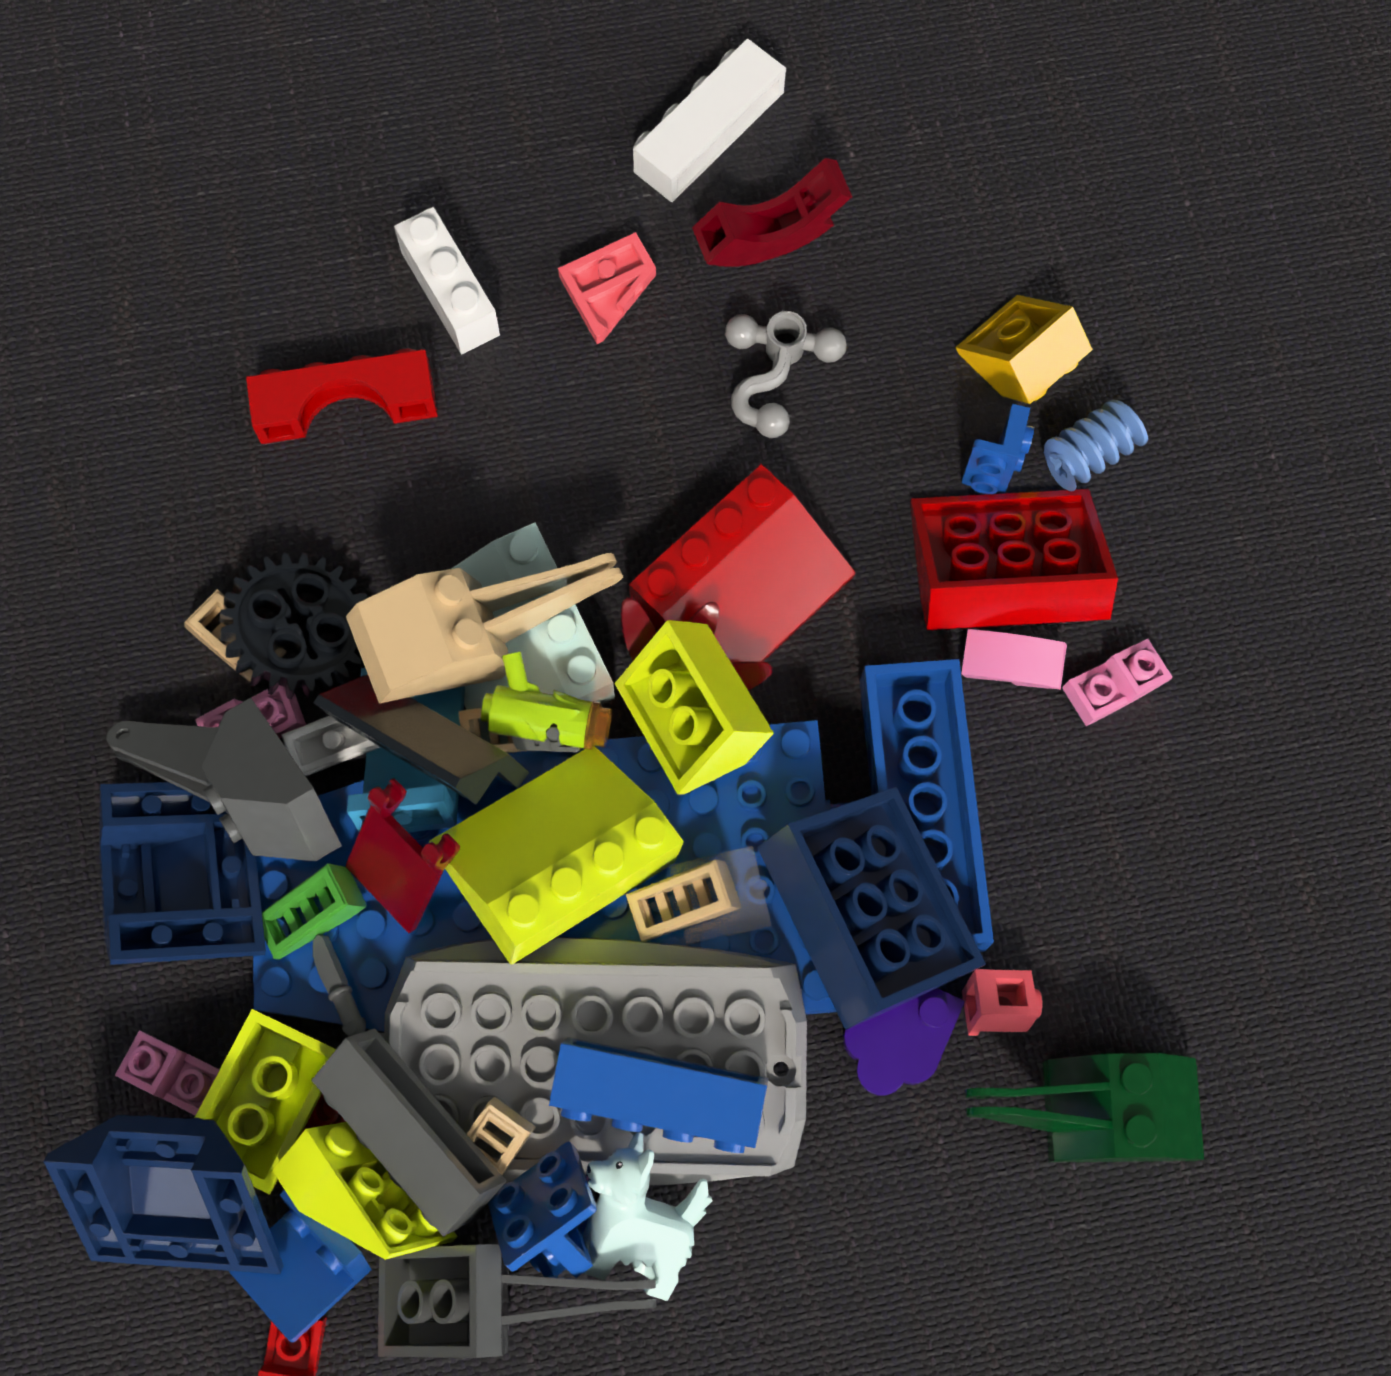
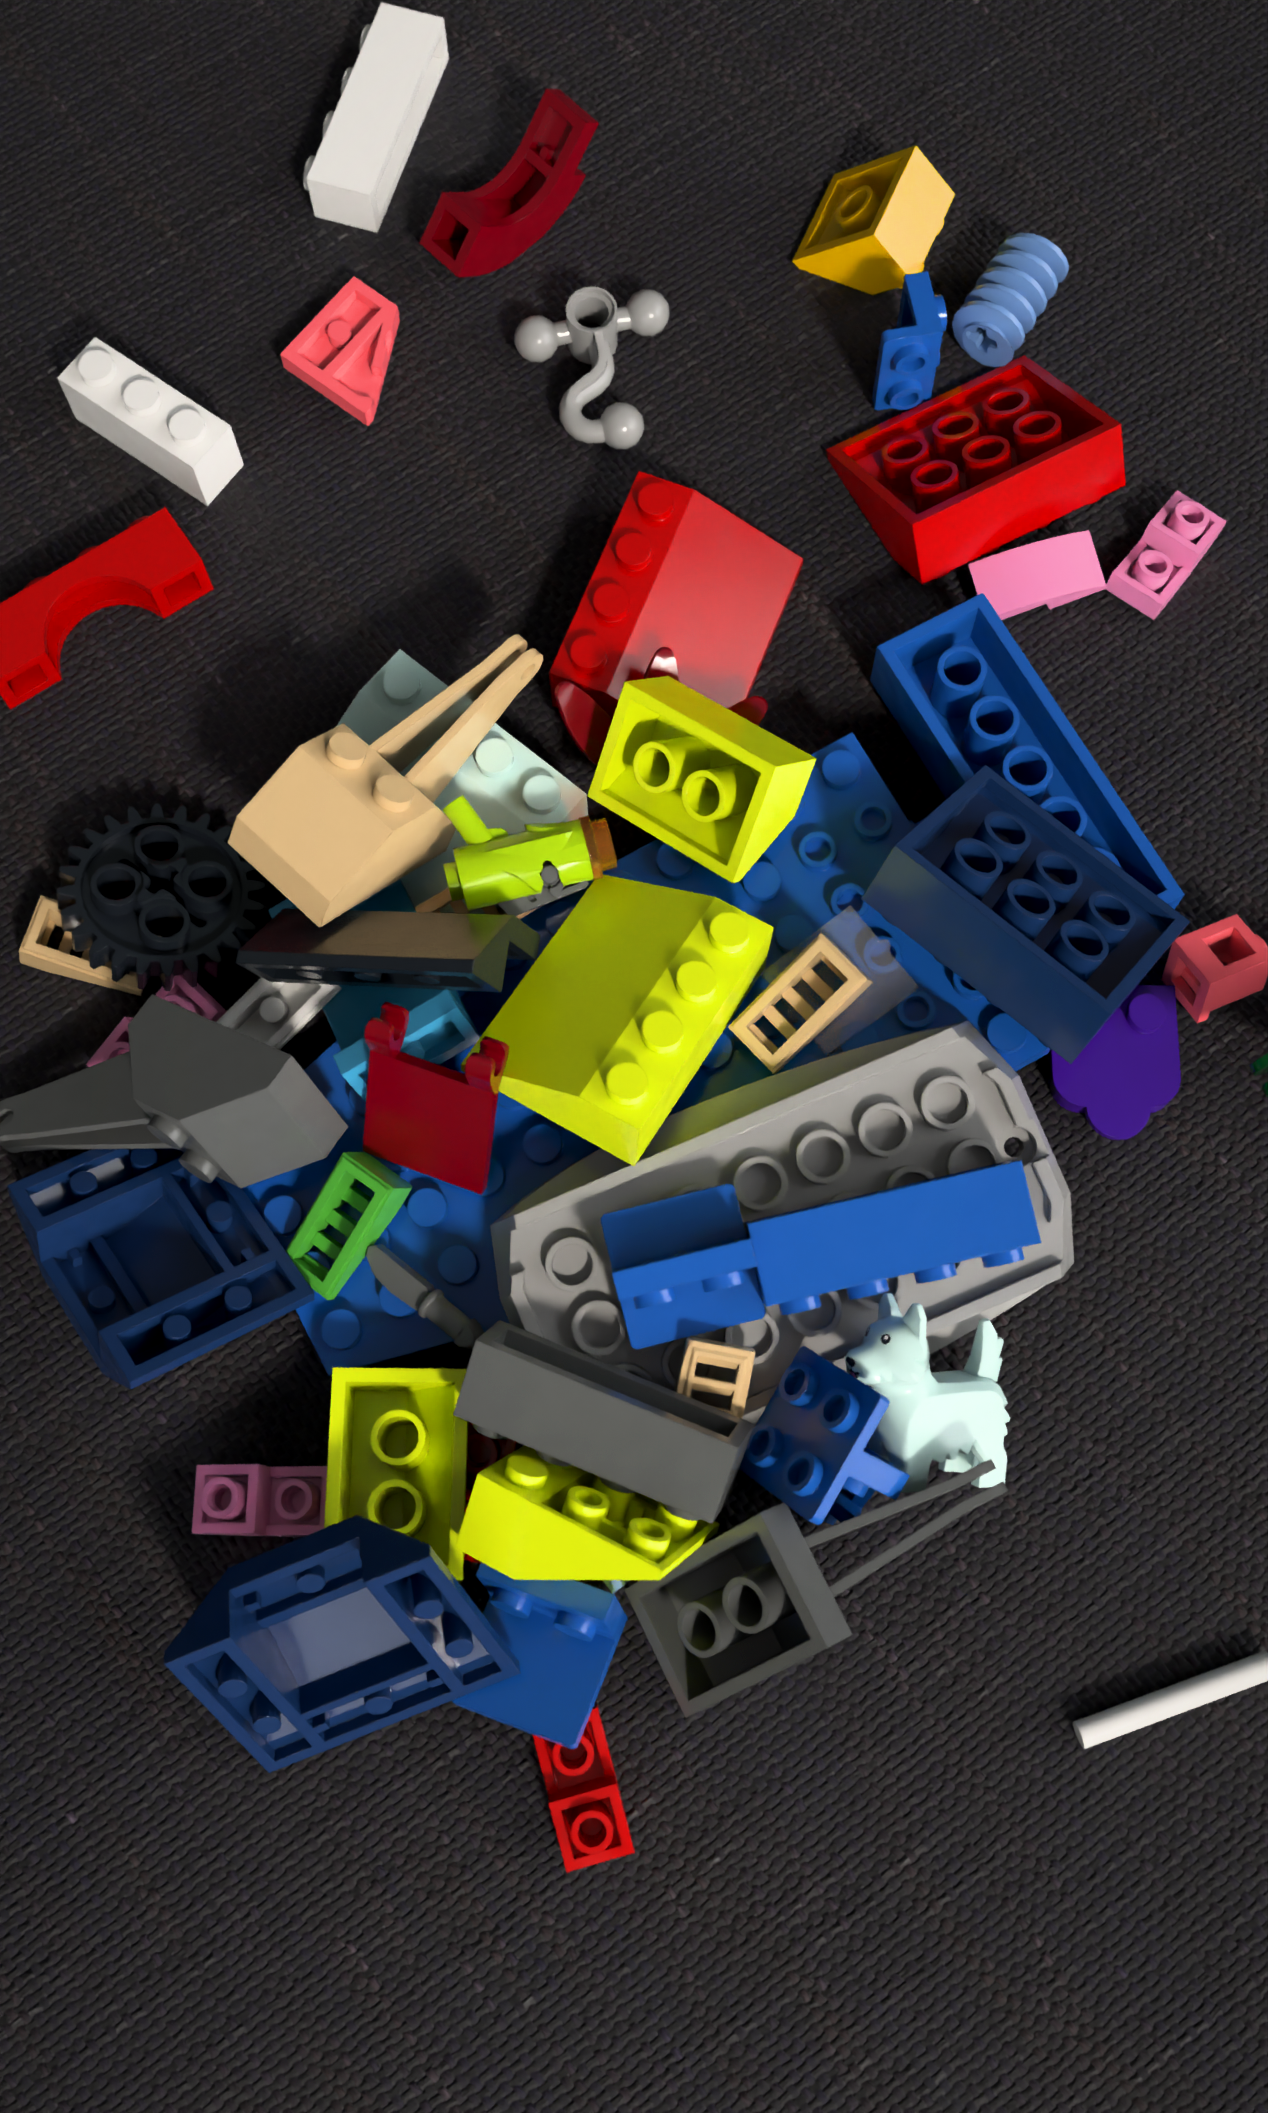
camera: 20 degrees left, 0 degrees up
(508, 1048) = (683, 1266): none -> blue bracket

